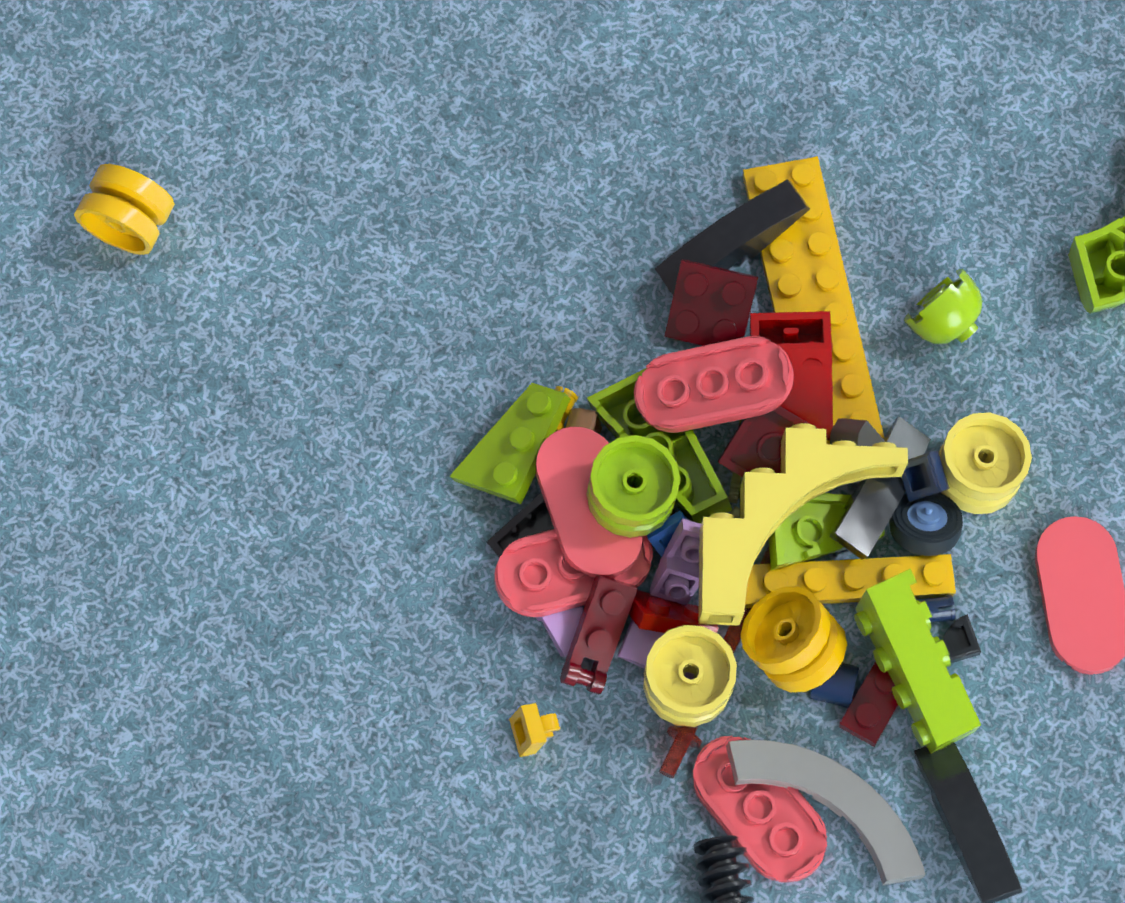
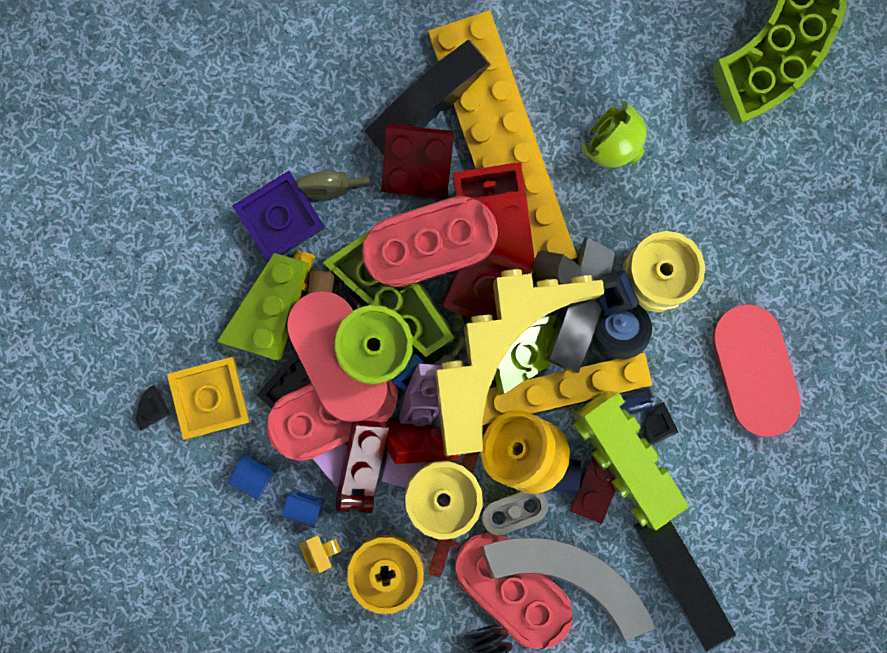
camera: 15 degrees left, 15 degrees up
(360, 542) = (151, 408): none -> black tile
(430, 537) = (208, 398): none -> yellow plate
(465, 634) = (251, 476): none -> blue brick
(521, 676) = (302, 508): none -> blue brick
(542, 347) = (278, 216): none -> dark purple plate
(604, 319) = (328, 184): none -> olive hand
(605, 736) = (384, 594): none -> yellow wheel
(771, 712) = (515, 513): none -> light grey plate

